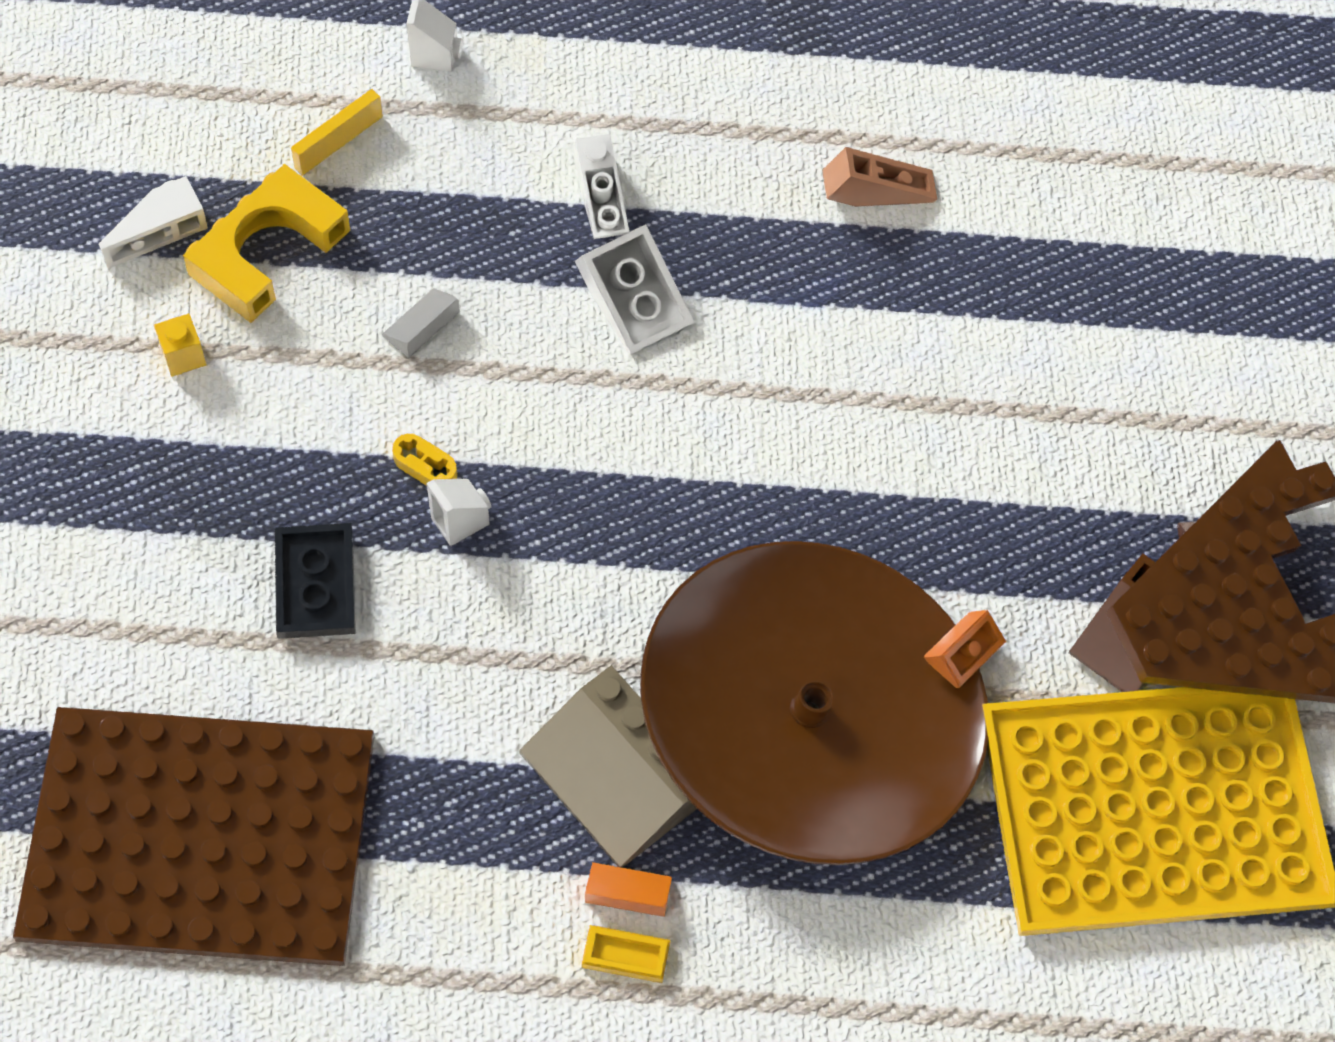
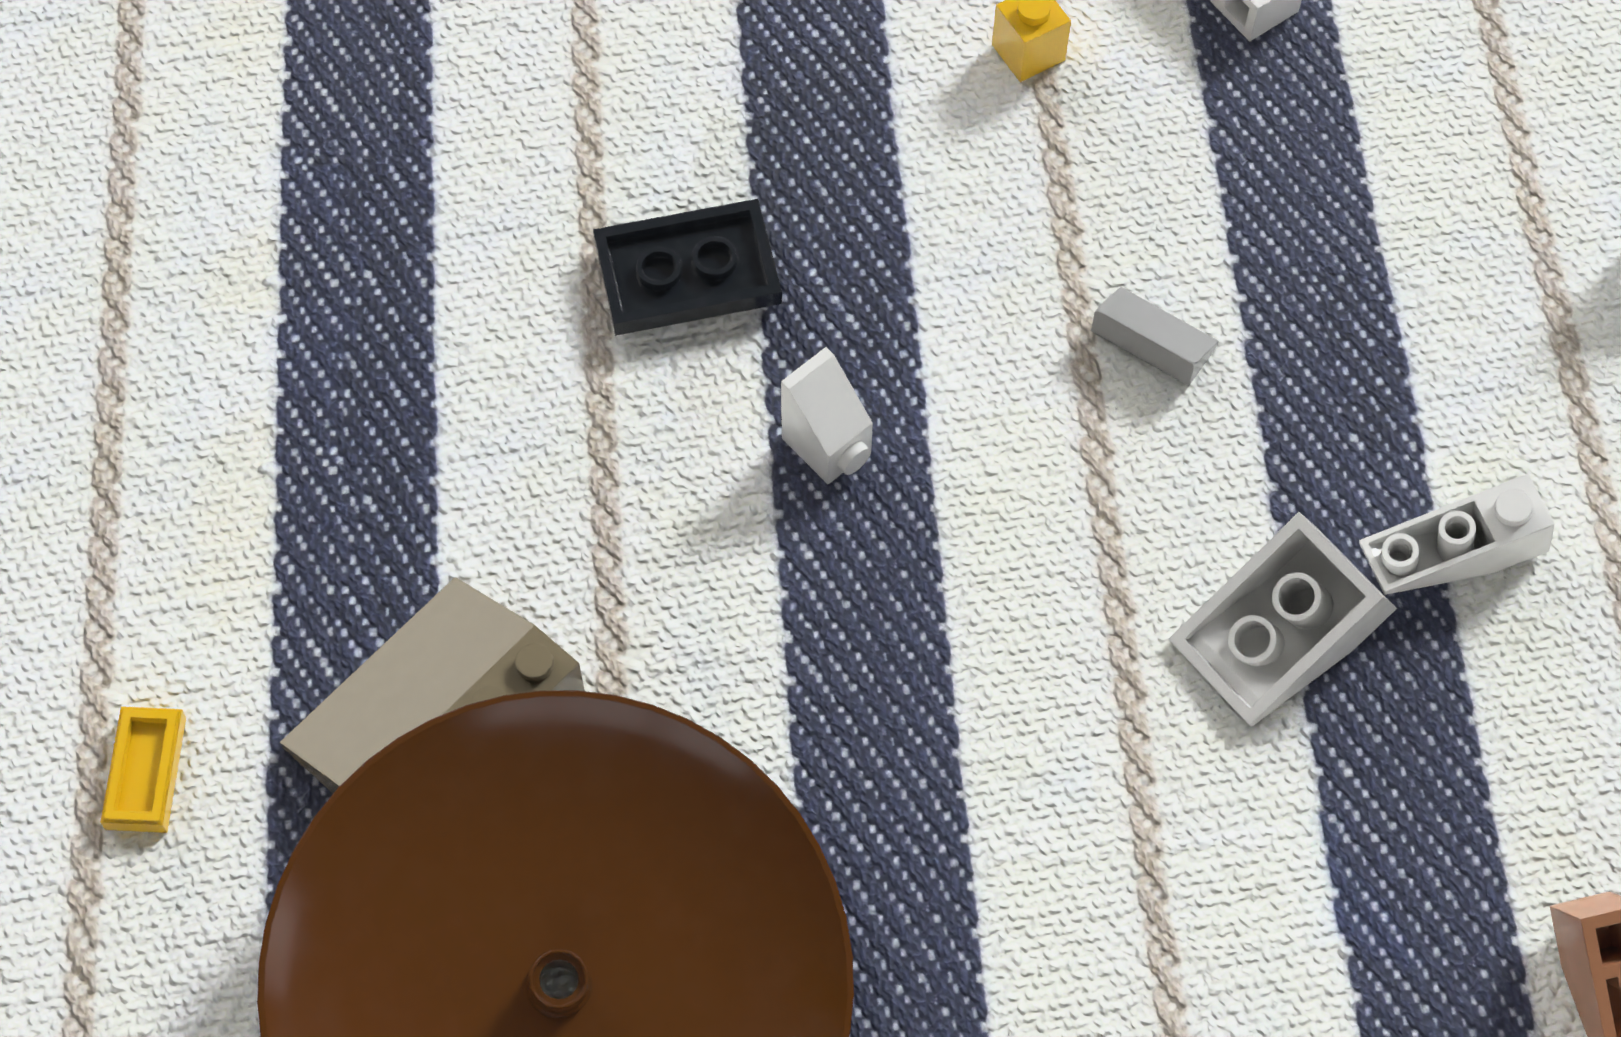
camera: 85 degrees right, 0 degrees up
(197, 837) = (291, 210): reddish brown plate -> none
(281, 201) = (1197, 53): yellow arch -> none
(336, 132) = (1457, 161): yellow tile -> none
(427, 455) = (900, 371): yellow beam -> none
(628, 889) = (242, 756): orange slope -> none

